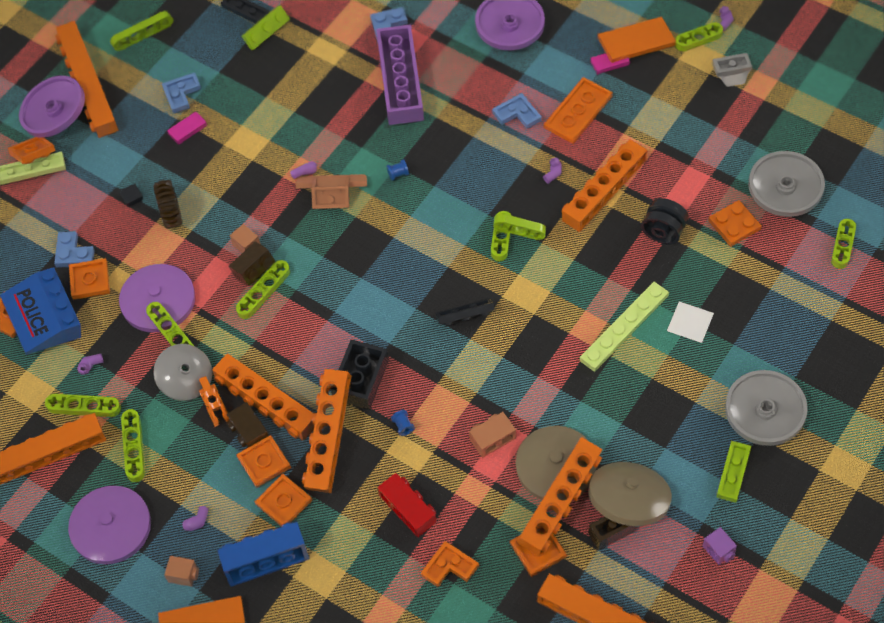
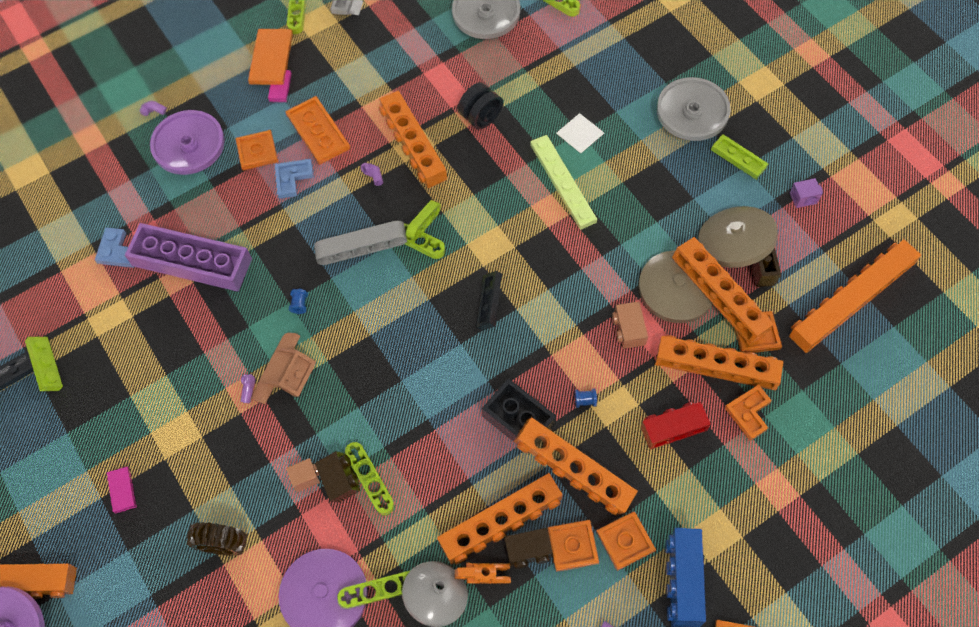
camera: 70 degrees left, 5 degrees up
(131, 195) = (174, 580): black tile -> none
(177, 89) = (65, 482): medium blue plate -> none
(473, 189) = (360, 242): none -> light grey beam
(492, 572) = (768, 379): none -> orange brick
(531, 74) = (256, 150): none -> orange plate
(734, 223) = (500, 63): orange plate -> none

